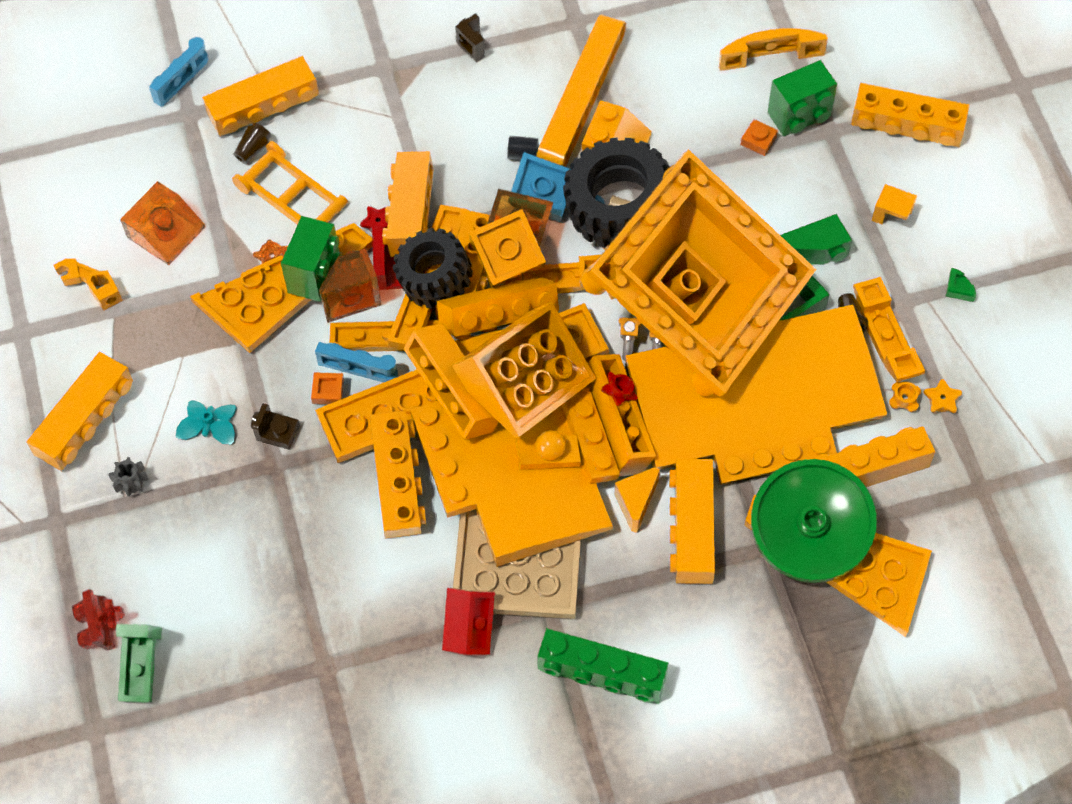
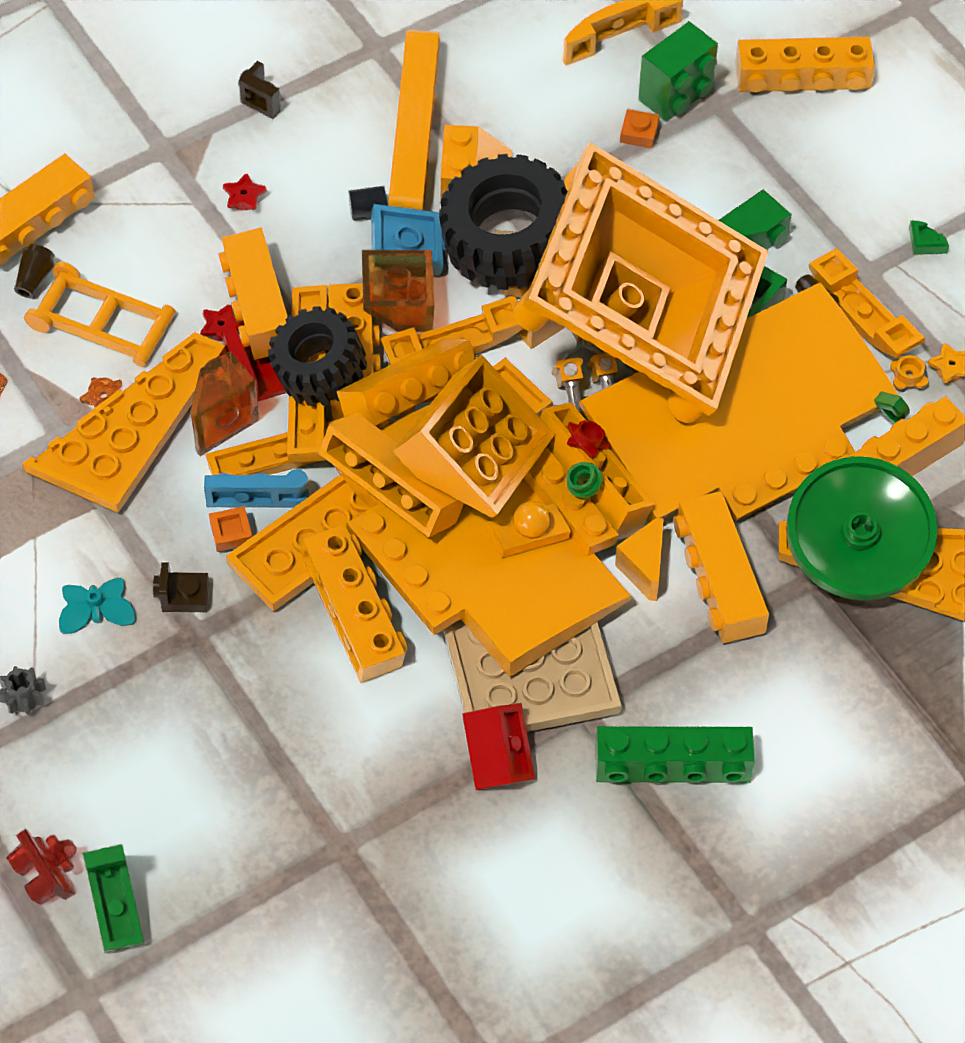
camera: 20 degrees left, 5 degrees down
(310, 257) = (165, 380): green brick -> none
(434, 124) = (248, 200): none -> red plate
(507, 248) = (399, 312): light orange panel -> none
(599, 418) = (579, 473): none -> green plate
(876, 423) = (892, 406): none -> green tile
(893, 202) = (822, 162): light orange panel -> none

